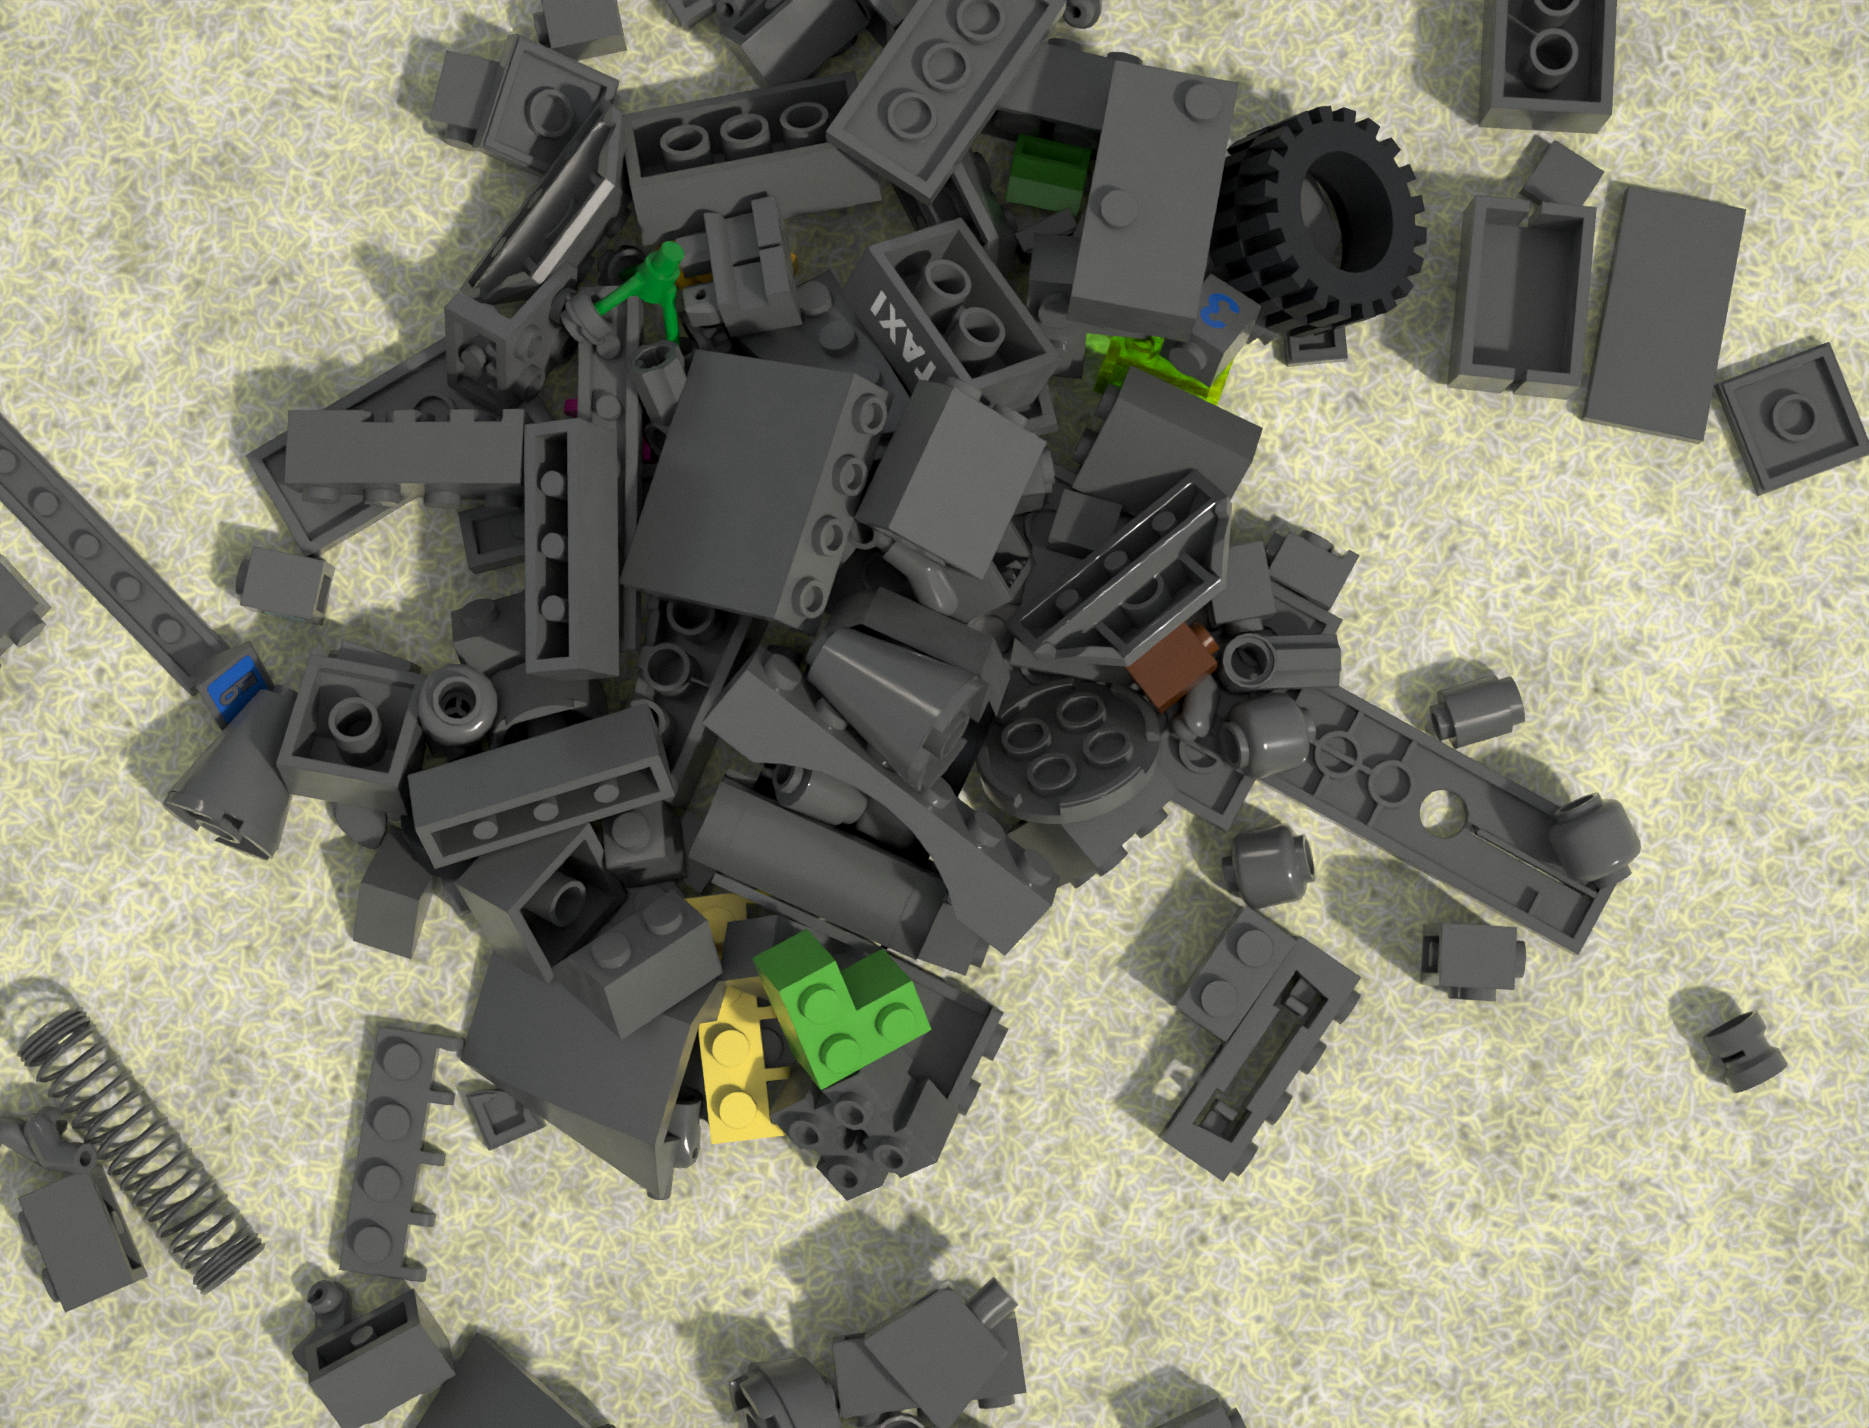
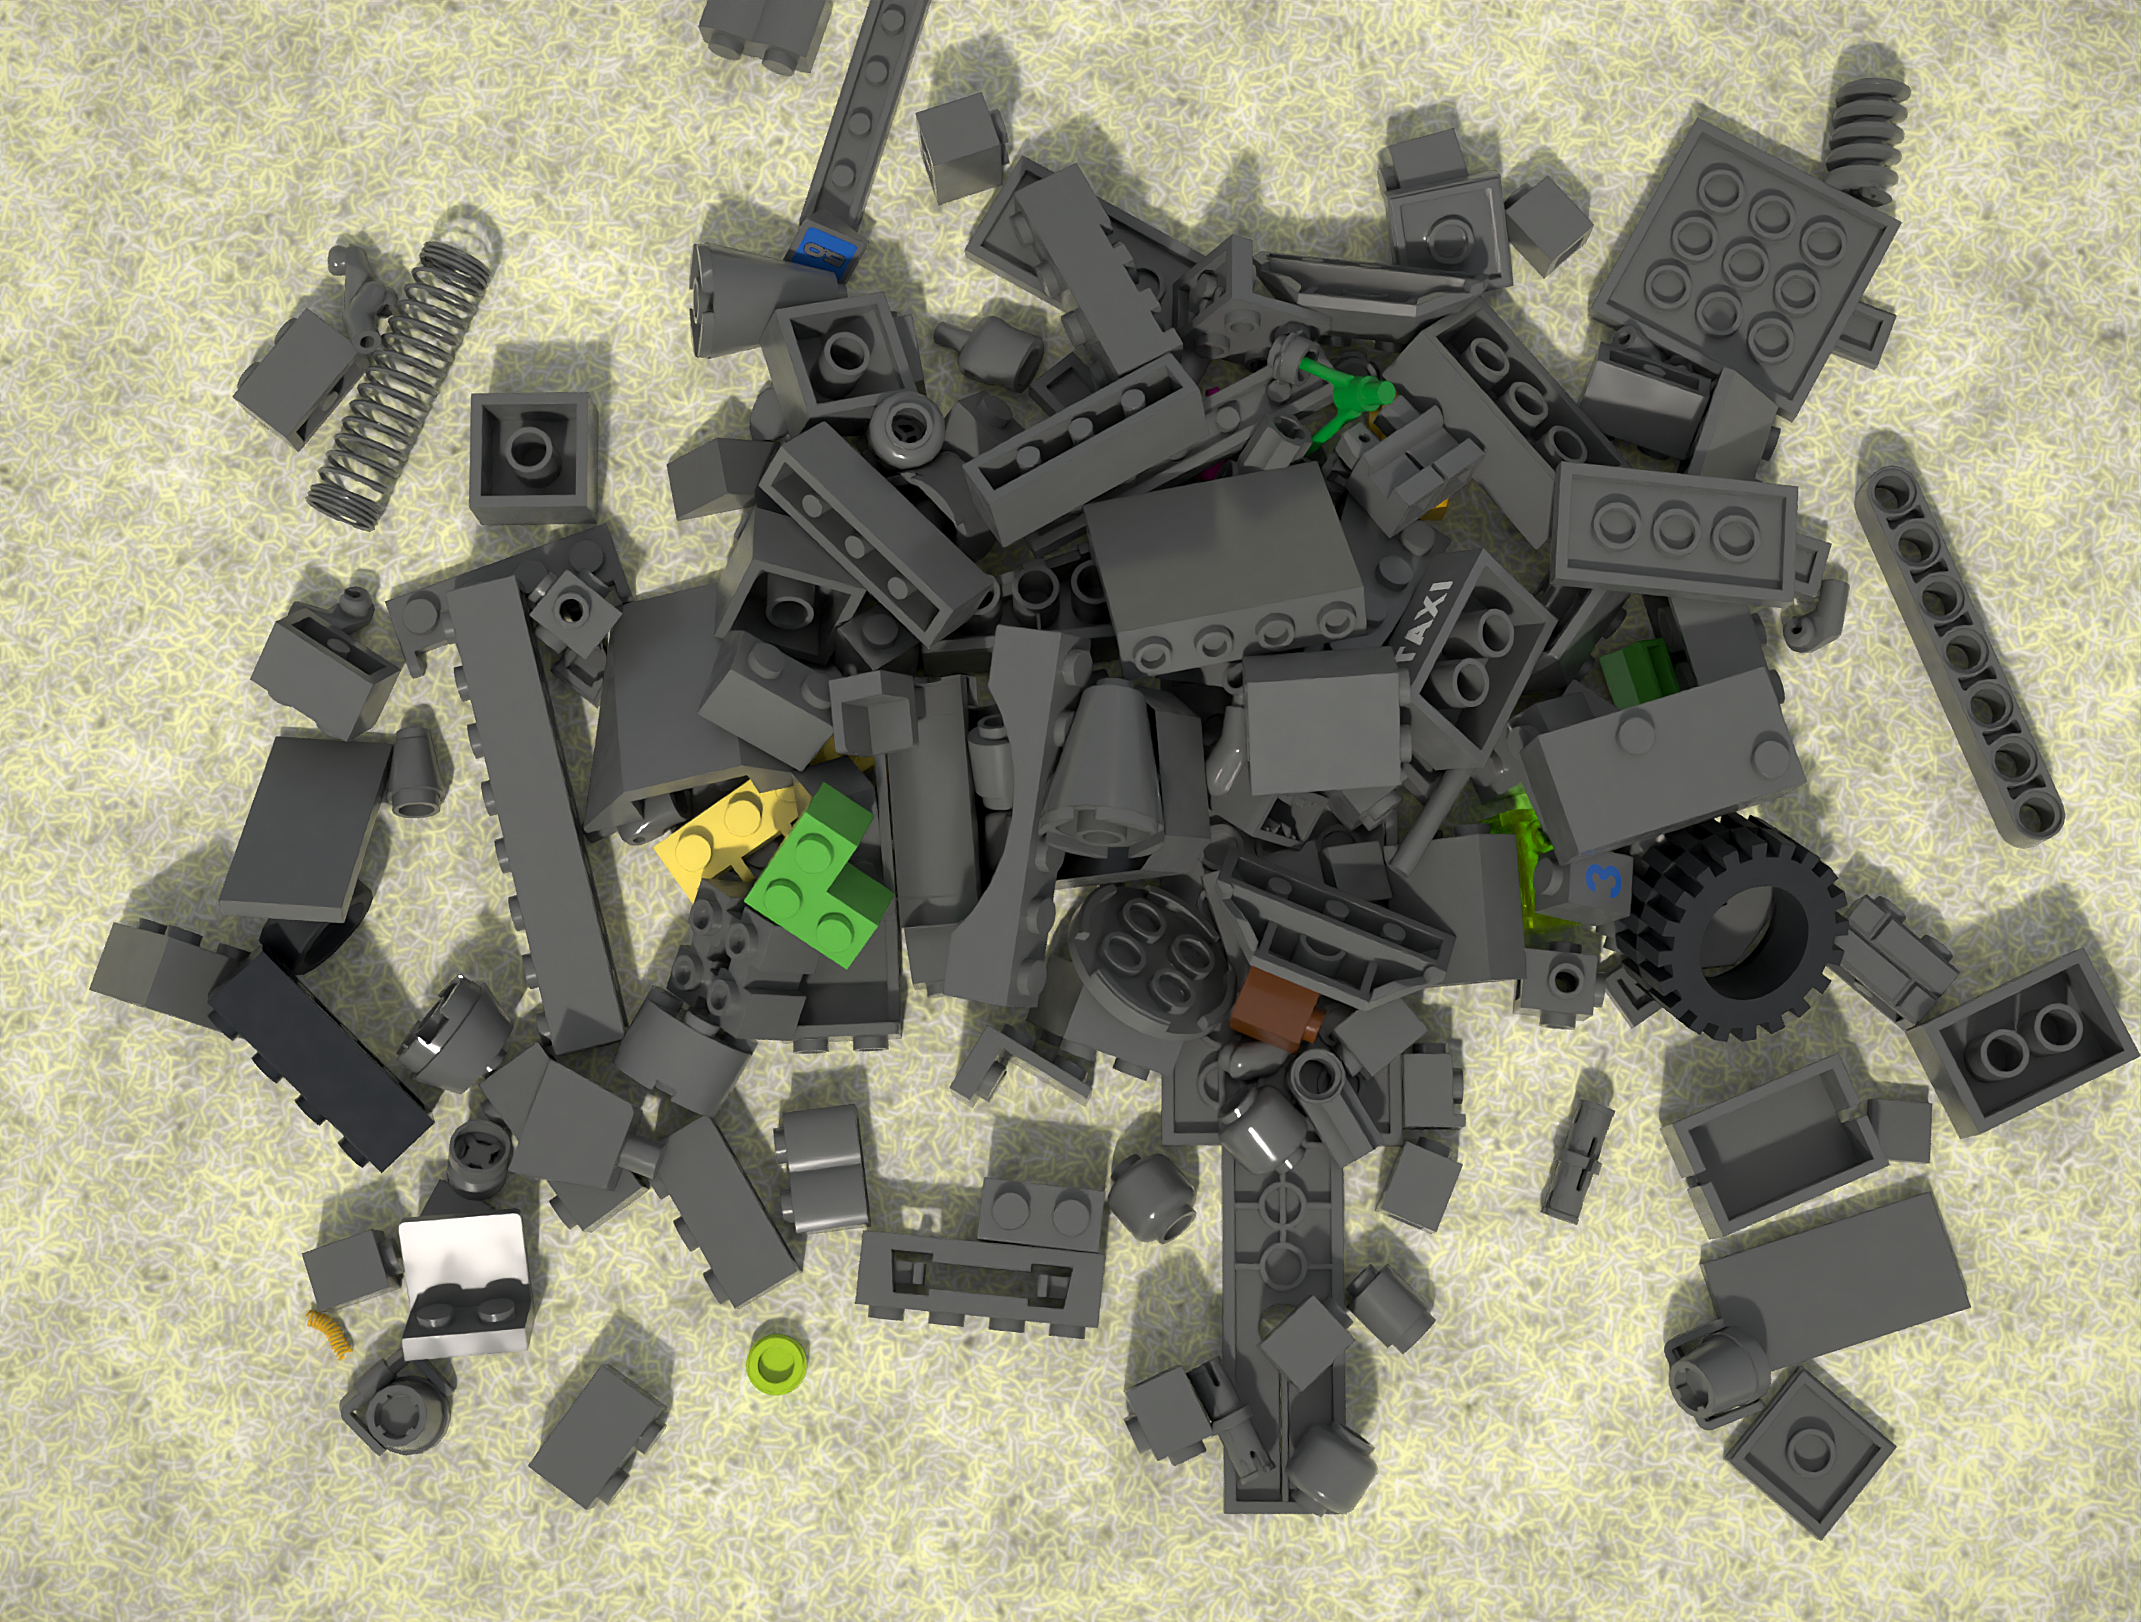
camera: 60 degrees right, 5 degrees down
(210, 506) = (962, 147): none -> dark grey brick
(282, 1061) = (533, 458): none -> dark grey brick
(285, 585) = (932, 246): dark grey brick -> none
(418, 583) = (994, 352): none -> dark grey piece
(475, 1101) = (597, 615): none -> dark grey brick
(518, 1326) = (415, 776): none -> dark grey cone
(620, 1234) = (537, 816): none -> dark grey brick
(711, 878) = (874, 713): none -> dark grey panel
(916, 1219) = (682, 1053): none -> dark grey brick
(1078, 435) = (1429, 821): none -> dark grey bar
(1078, 1257) = (722, 1215): none -> dark grey brick
(1082, 955) = (984, 1073): none -> dark grey bracket
(1086, 1144) = (824, 1170): none -> dark grey brick
(1233, 1279) = (776, 1364): none -> lime tile
(1291, 382) = (1543, 999): none -> dark grey brick
(1385, 624) = (1420, 1184): none -> dark grey brick
(1419, 102) = (1891, 963): none -> dark grey brick
(1438, 474) = (1578, 1161): none -> dark grey pin
(1473, 798) = (1308, 1340): none -> dark grey brick
(1503, 904) = (1231, 1420): none -> dark grey pin
(1692, 458) = (1718, 1374): none -> dark grey piece

